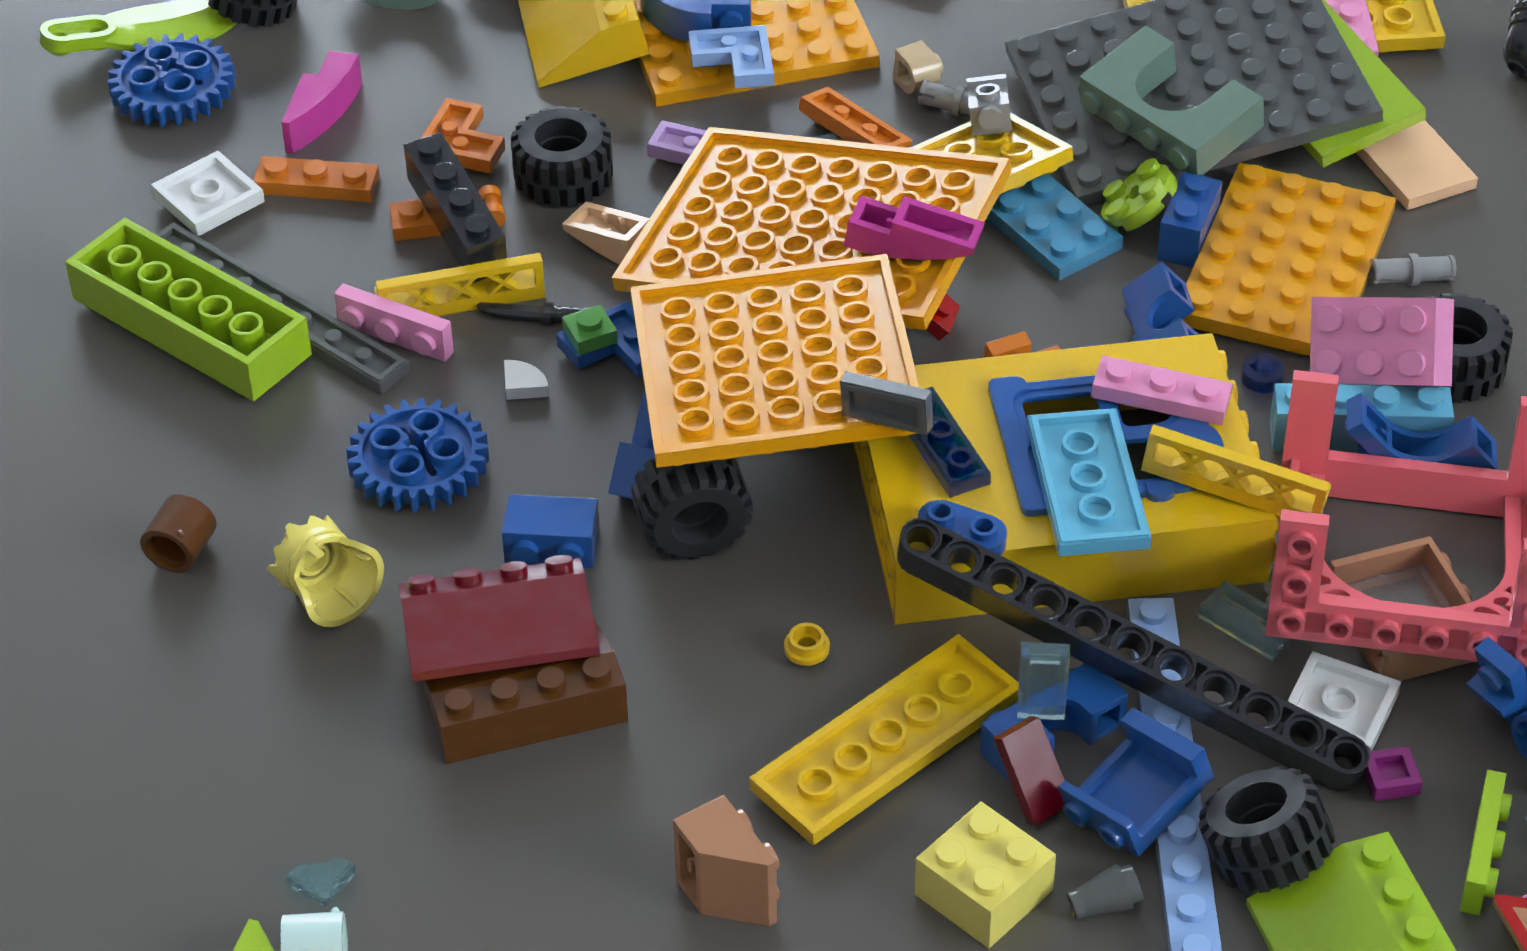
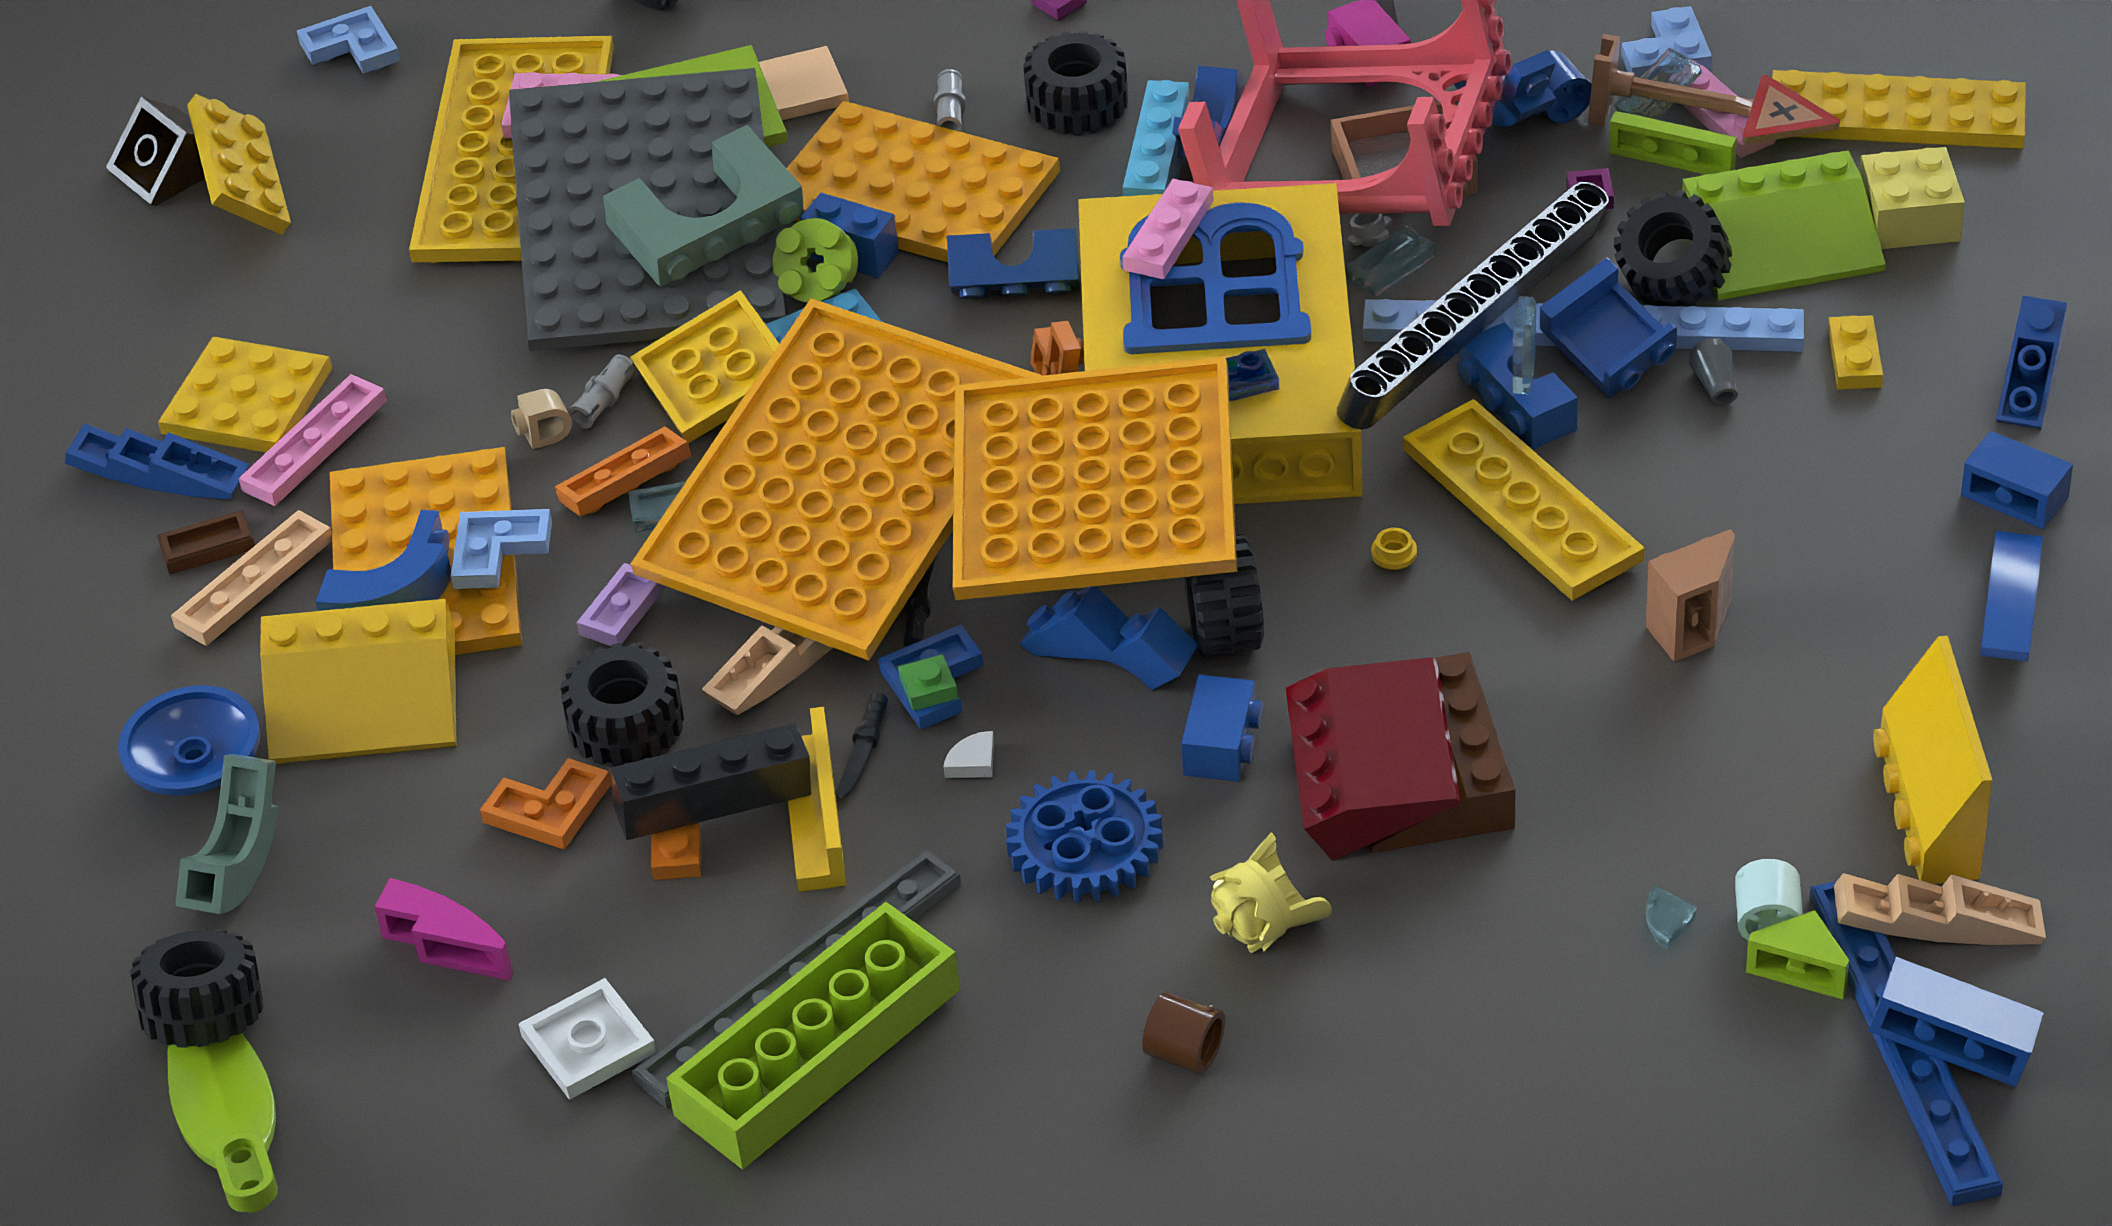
camera: 80 degrees left, 0 degrees up
(171, 79) = (355, 1081): blue gear -> none
(317, 179) = (578, 940): orange plate -> none
(394, 322) = (866, 857): bright pink plate -> none
(886, 403) = (1220, 368): dark grey tile -> none
(911, 231) = (918, 370): dark pink slope -> none
(967, 522) = (1328, 376): blue plate -> none
(984, 874) = (1698, 439): light yellow brick -> none
(989, 105) = (651, 349): light grey brick -> none
(1031, 769) = (1587, 391): tile -> none
(1088, 482) = (1284, 286): medium azure tile -> none
(1232, 474) = (1294, 190): yellow fence -> none
(1262, 371) = (1063, 215): clear blue tile -> none
(1346, 696) = (1501, 206): white plate -> none
(1383, 340) = (1093, 105): bright pink brick -> none

